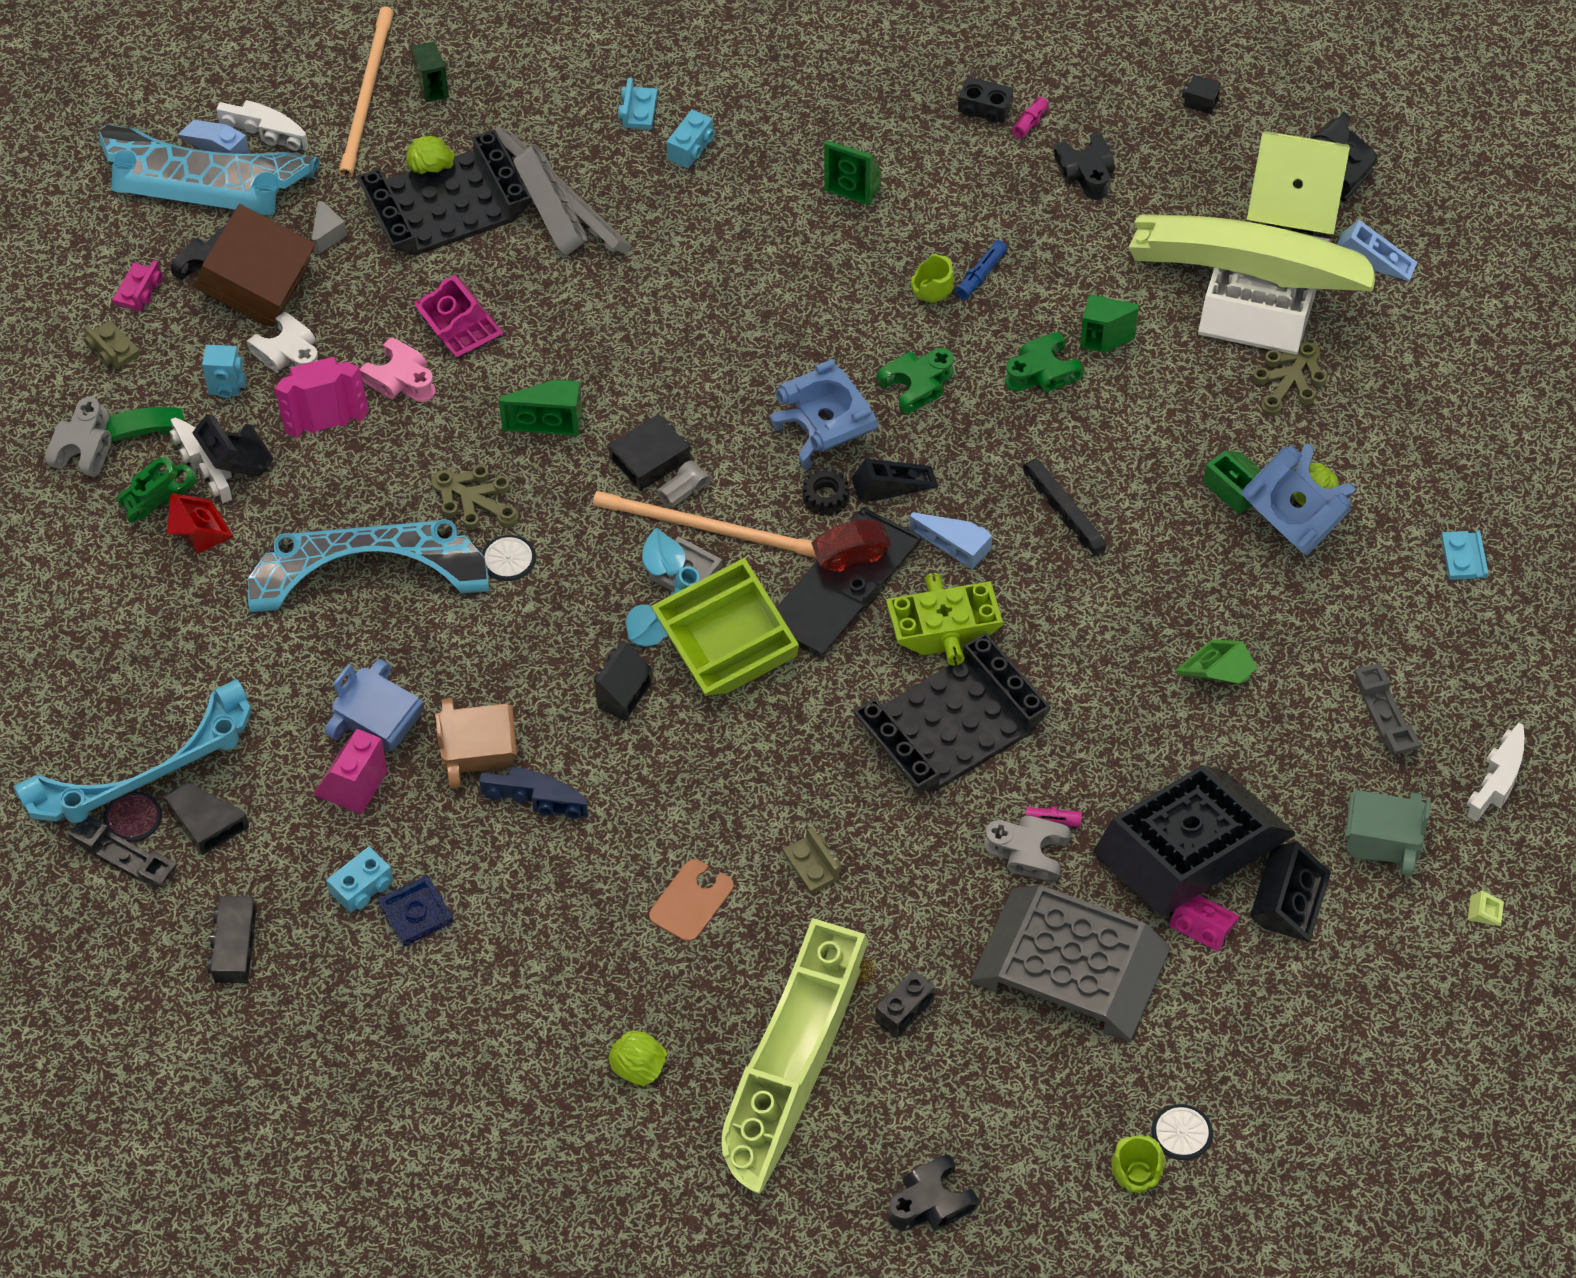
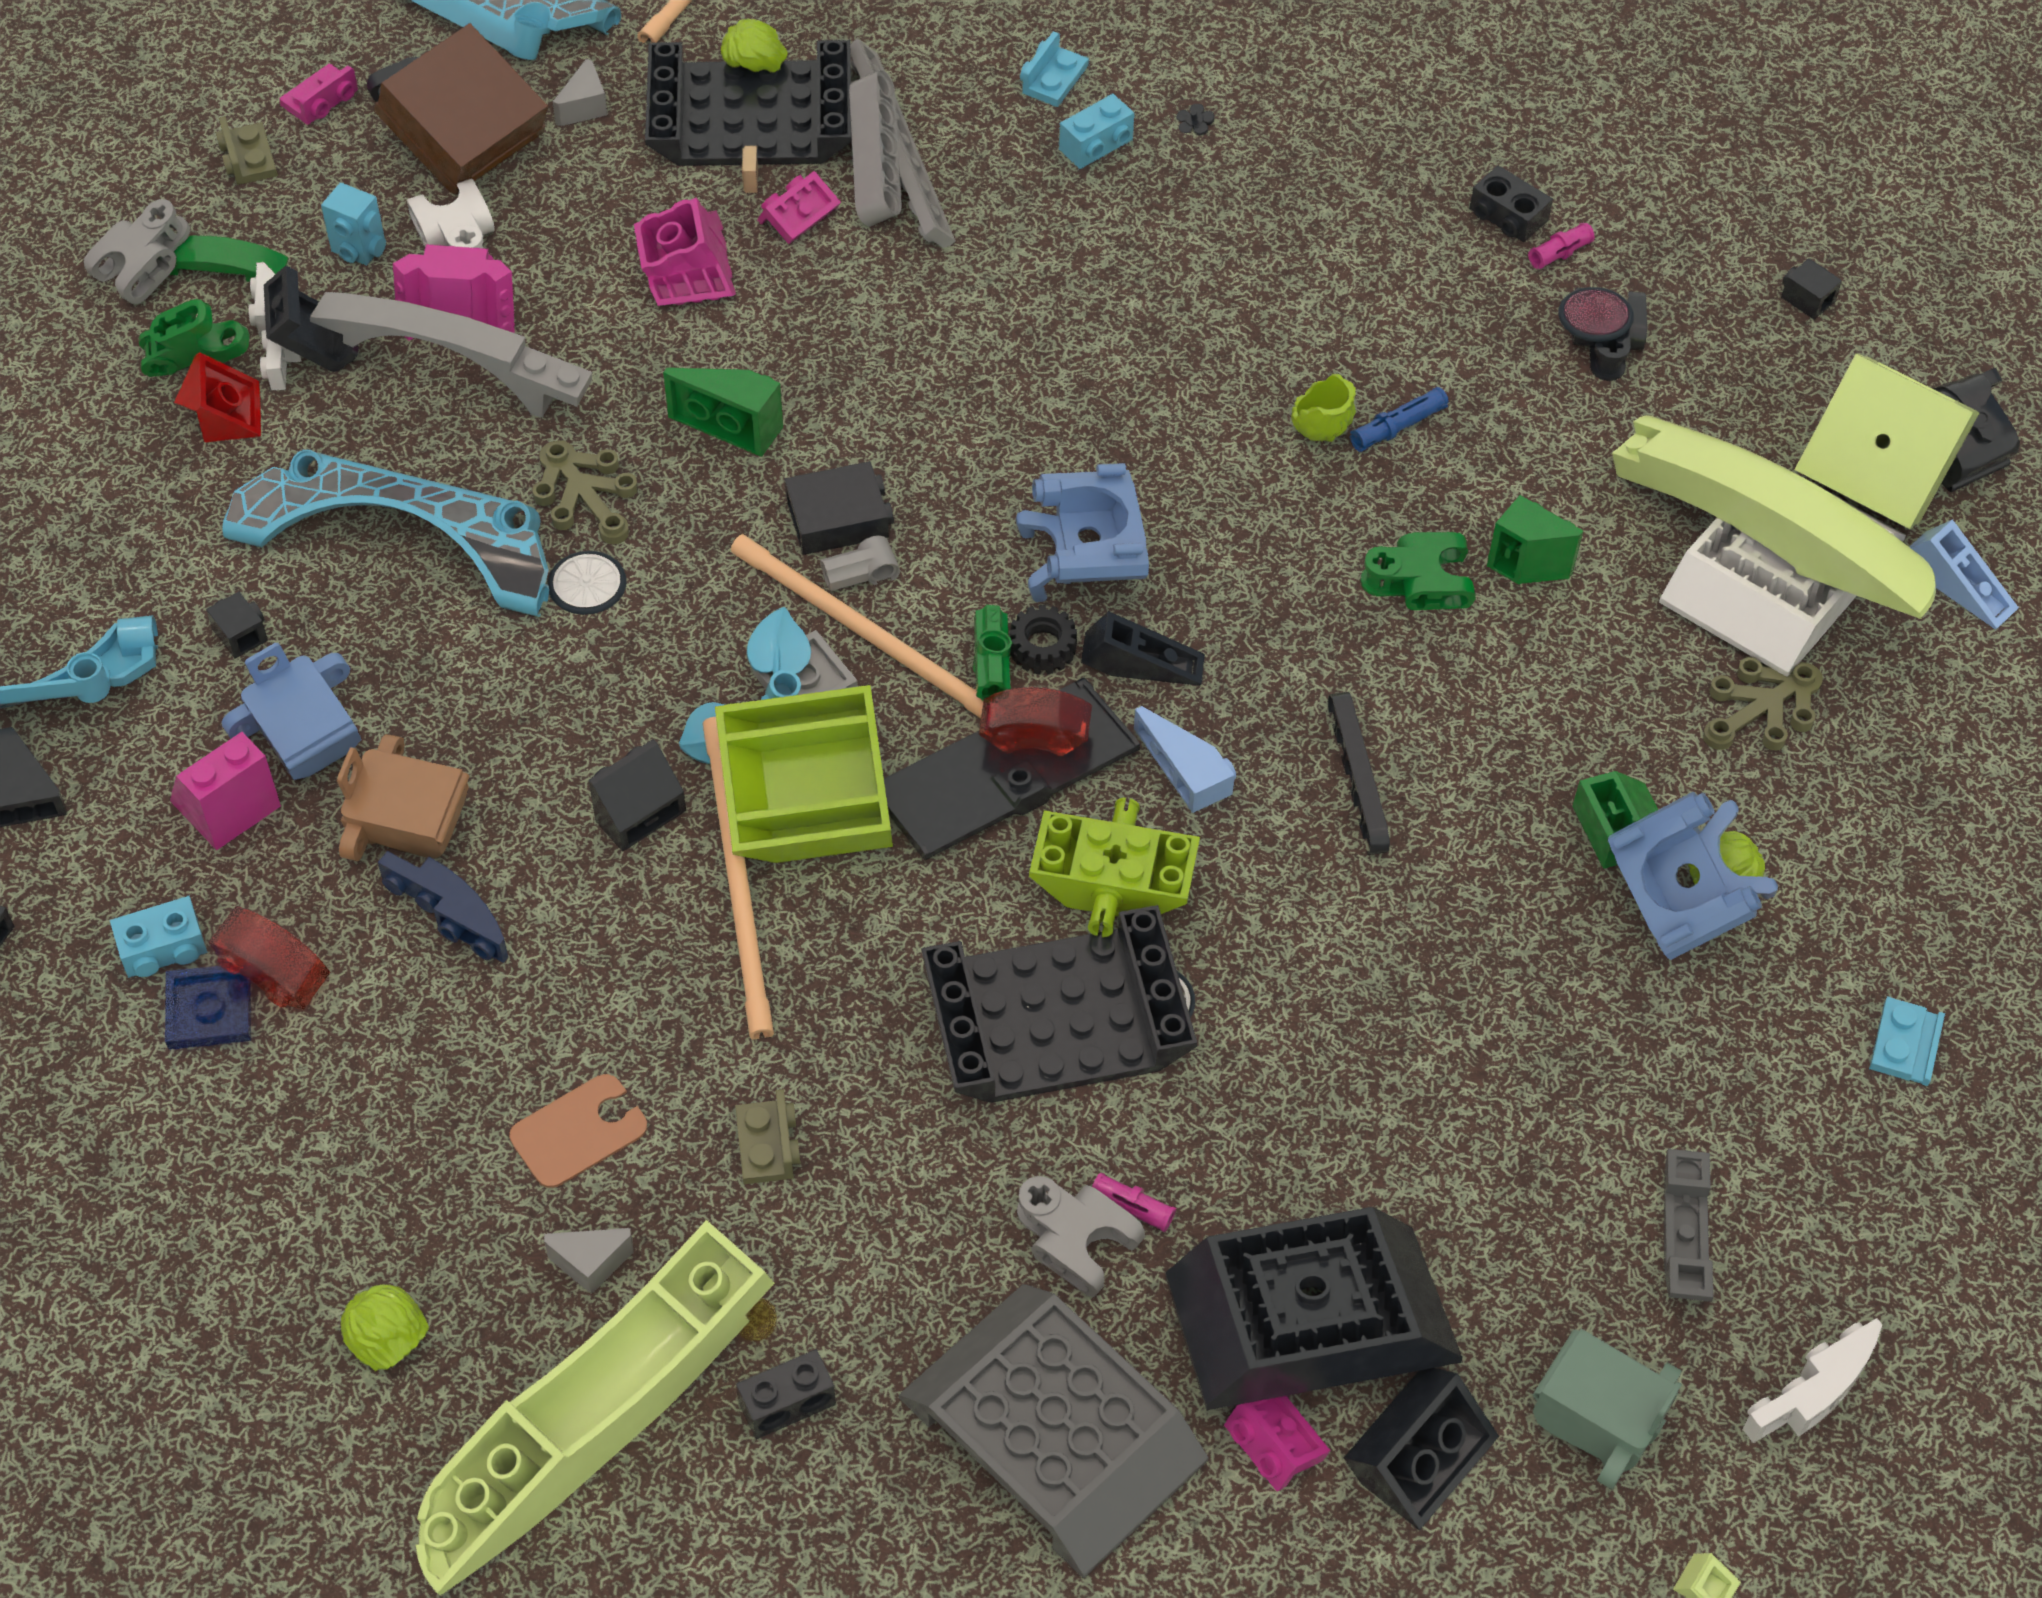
camera: 20 degrees right, 0 degrees up
(294, 665) = (237, 624): none -> black brick
(399, 431) = (527, 372): none -> light grey slope
(402, 374) = (577, 303): bright pink piece -> none
(443, 865) = (269, 958): none -> clear red brick
(469, 242) = (750, 169): none -> tan tile
(516, 257) = (800, 207): none -> dark pink bracket
(740, 969) = (589, 1255): none -> light grey slope
(748, 108) = (1195, 119): none -> black plant
(762, 782) = (756, 1003): none -> light nougat piece
(799, 511) = (991, 651): none -> green piece
(850, 173) = (1280, 237): green slope -> none
(921, 376) = (1247, 529): green piece -> none
(1077, 158) = (1595, 314): none -> clear pink wheel
(1220, 662) = (1475, 1067): bright green slope -> none

